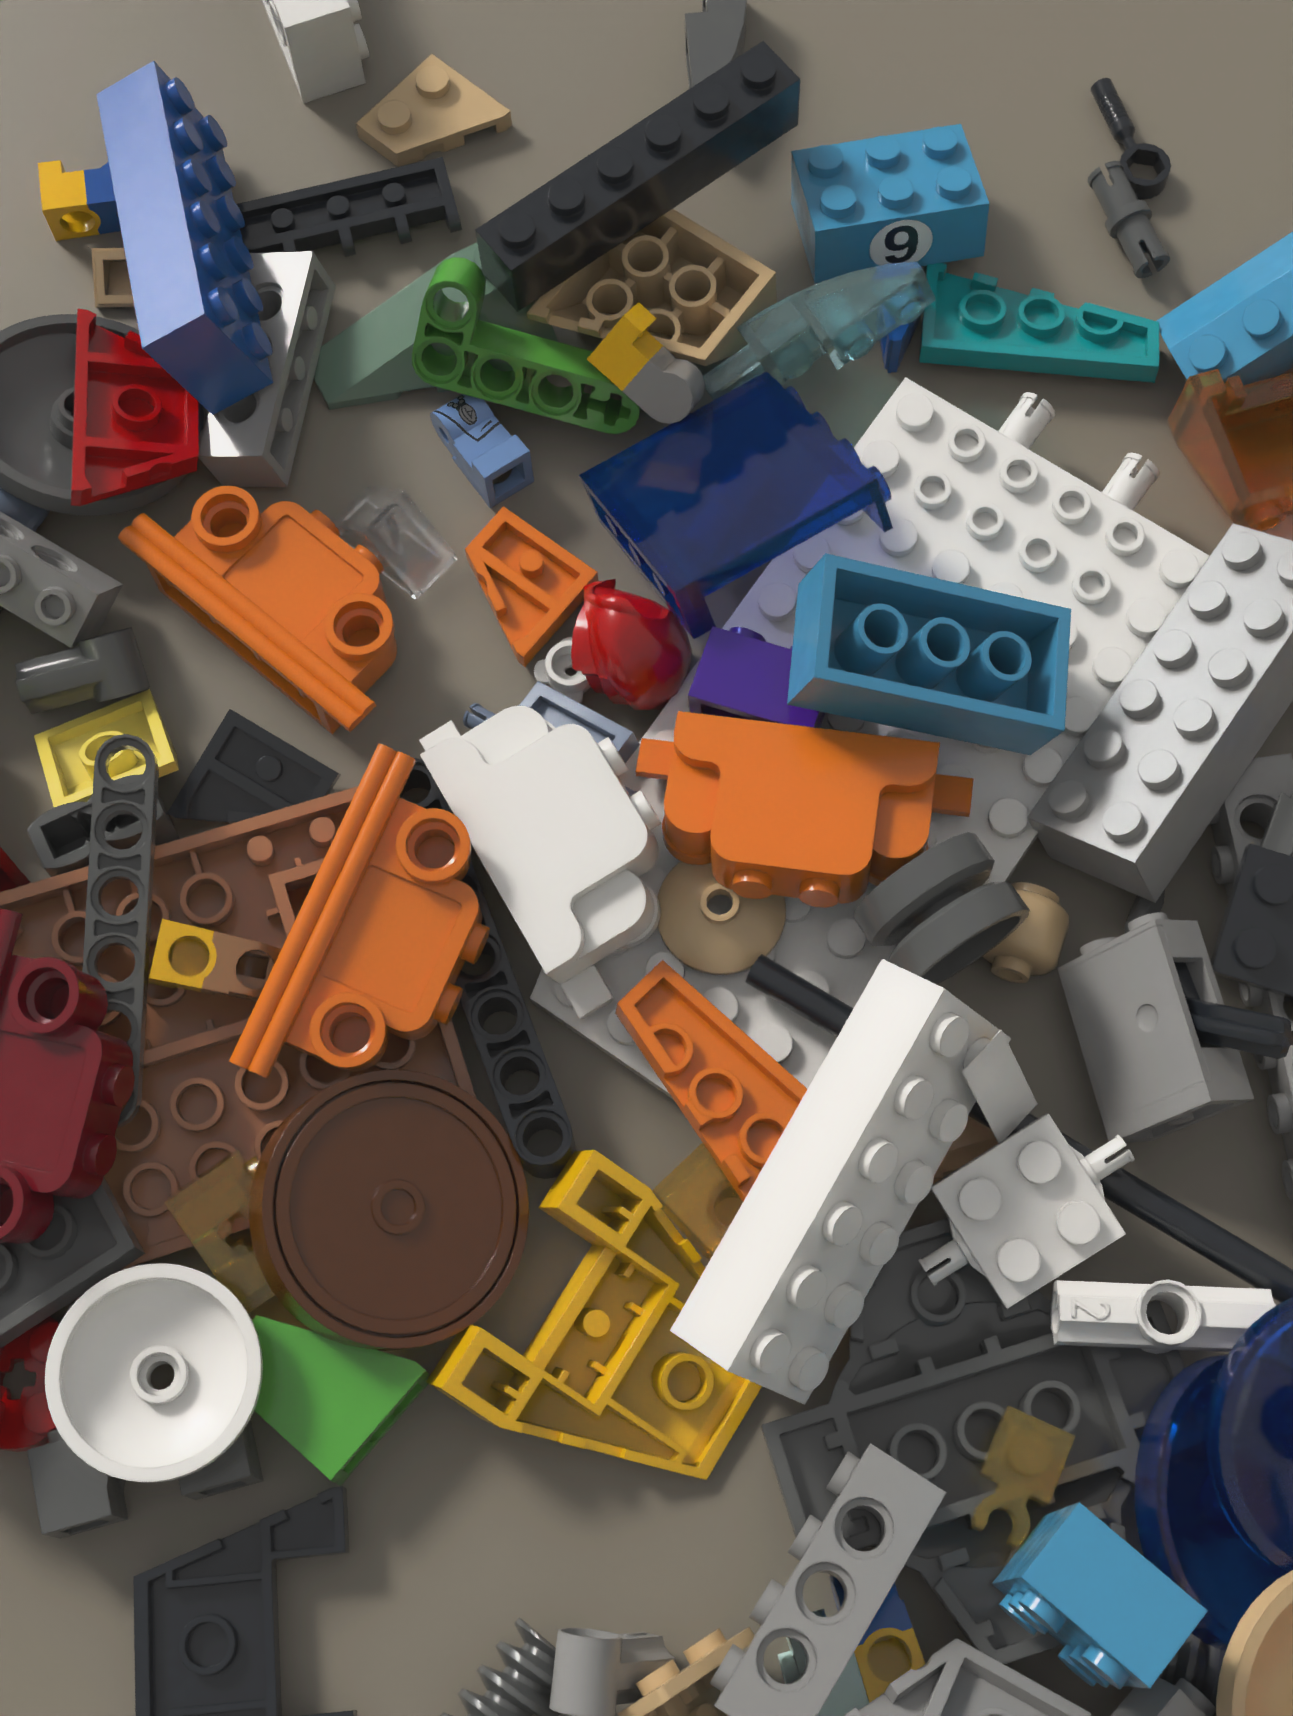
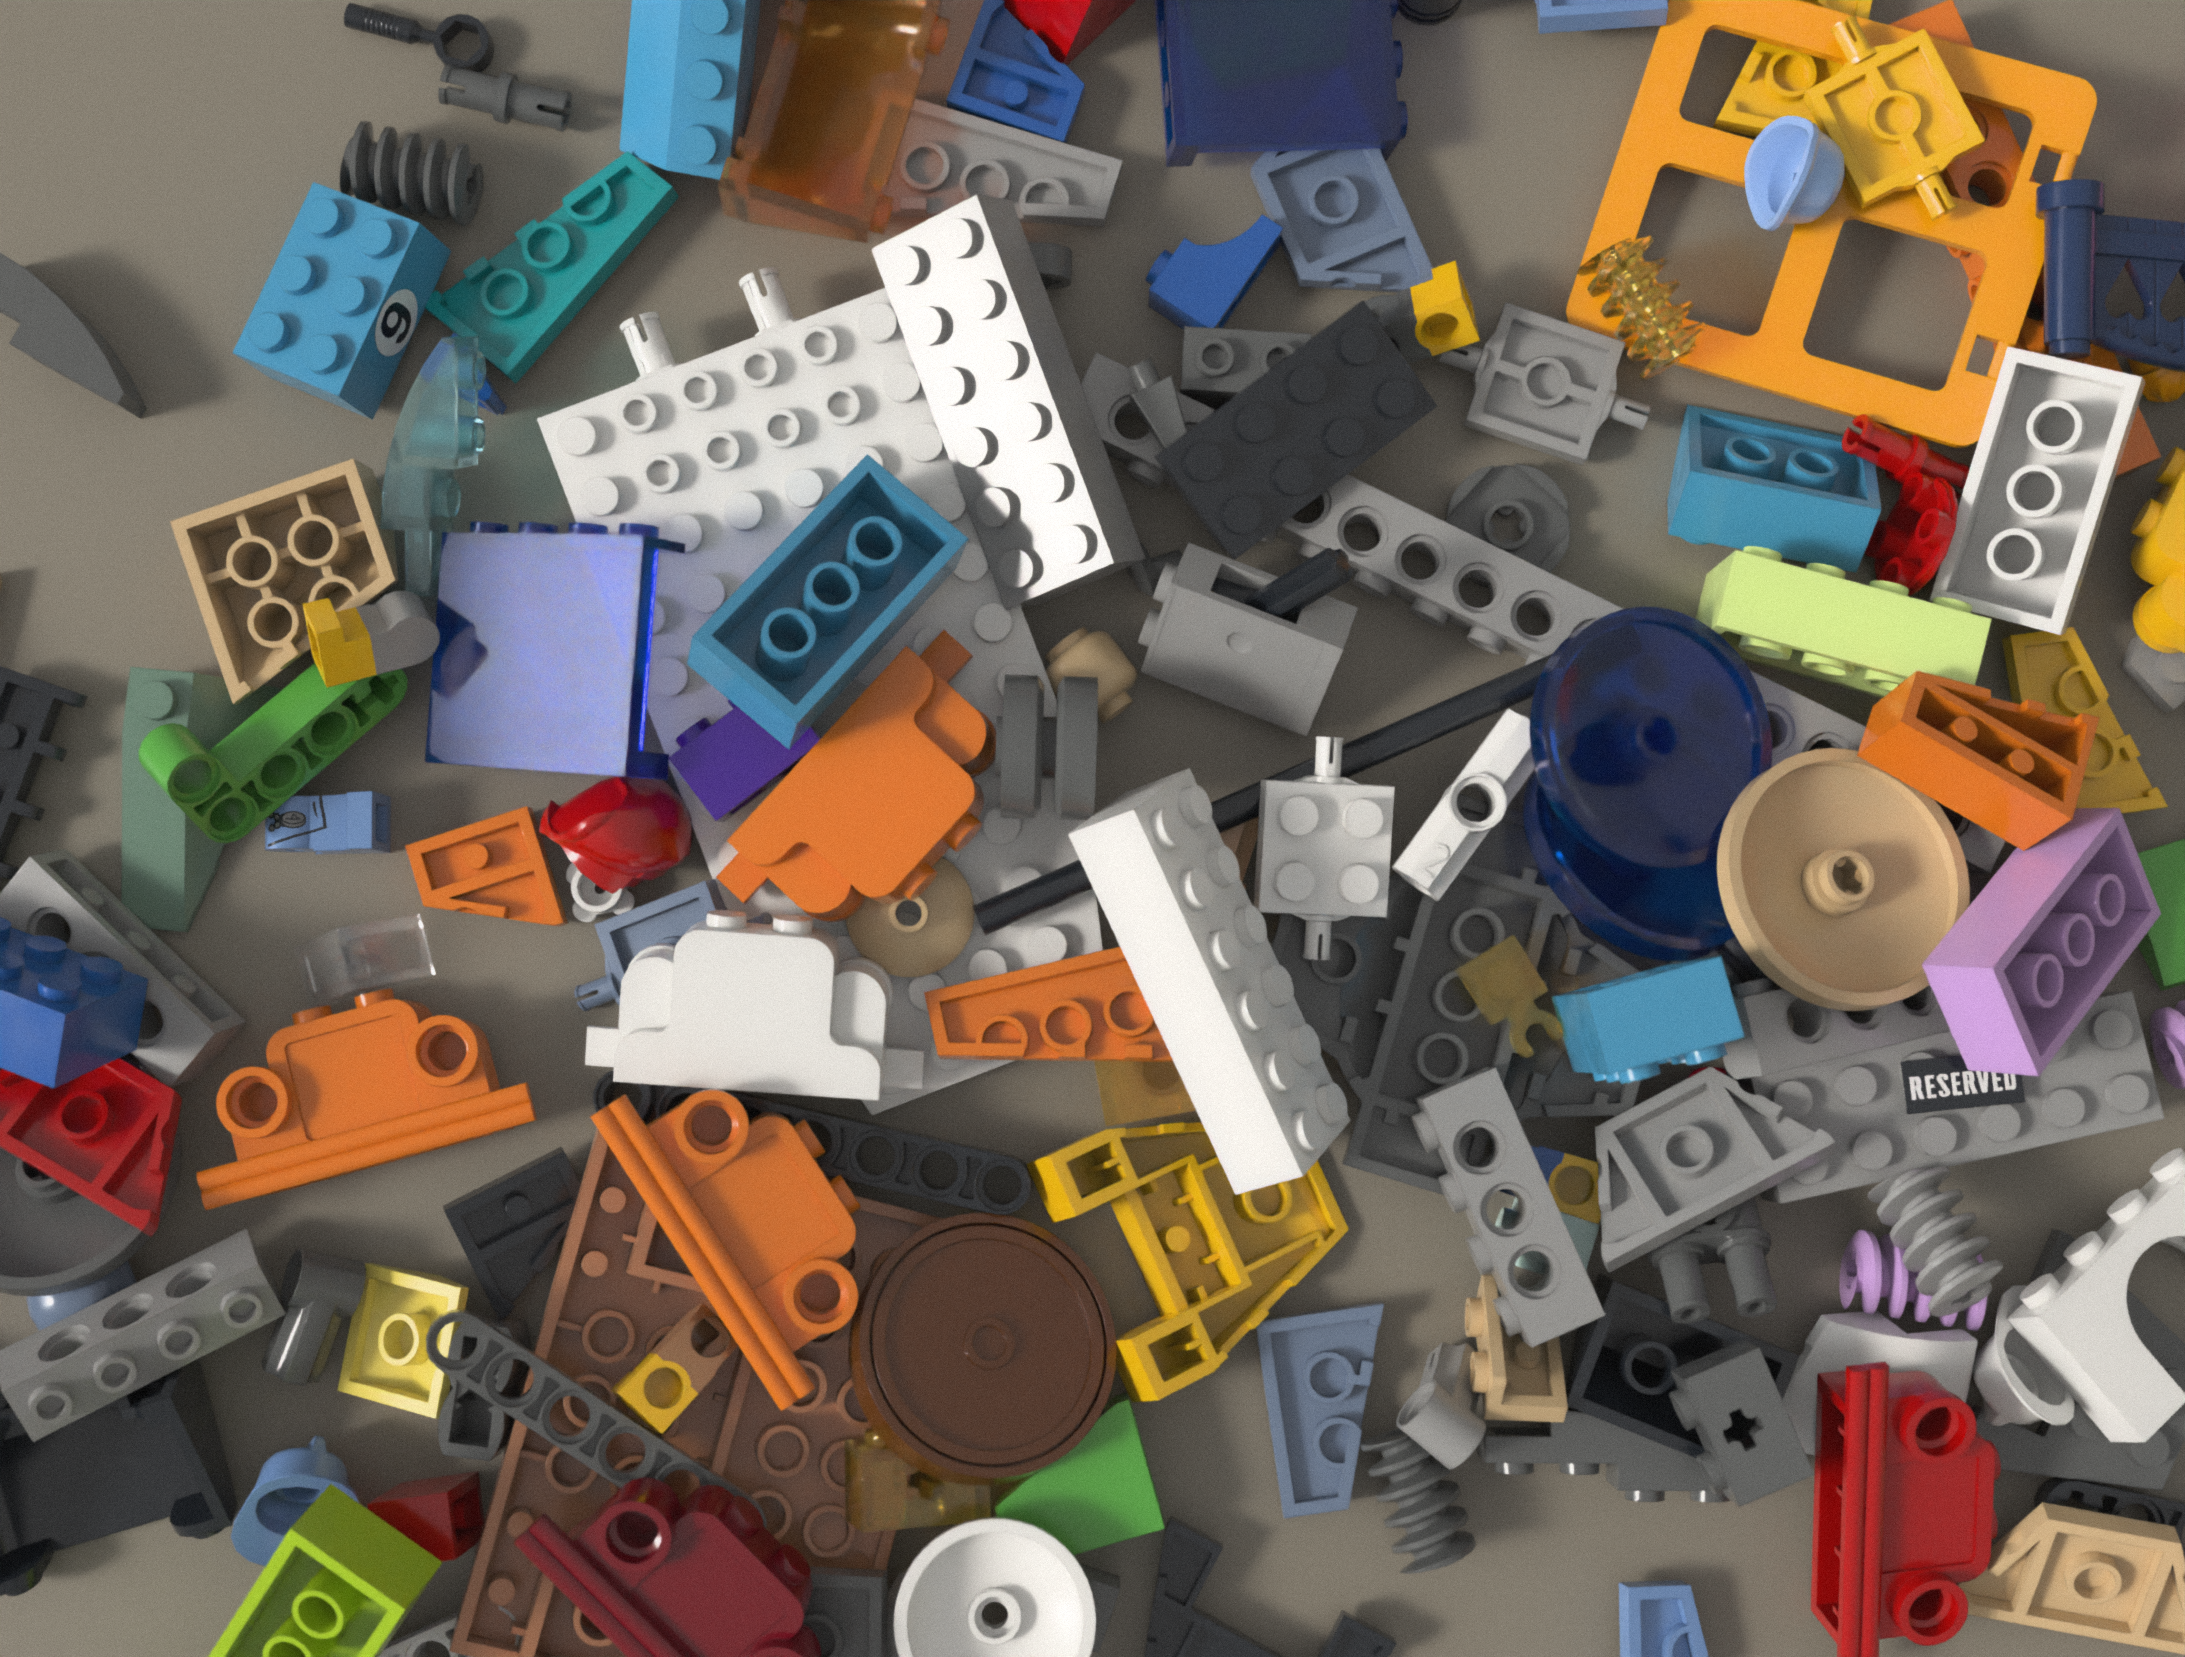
camera: 55 degrees left, 15 degrees up
(532, 1552) = (1315, 1396): none -> sand blue wing
(639, 176) = (175, 515): black brick -> none
(999, 1087) = (1222, 805): white sticker -> none
(1022, 192) = (411, 176): none -> dark grey piece

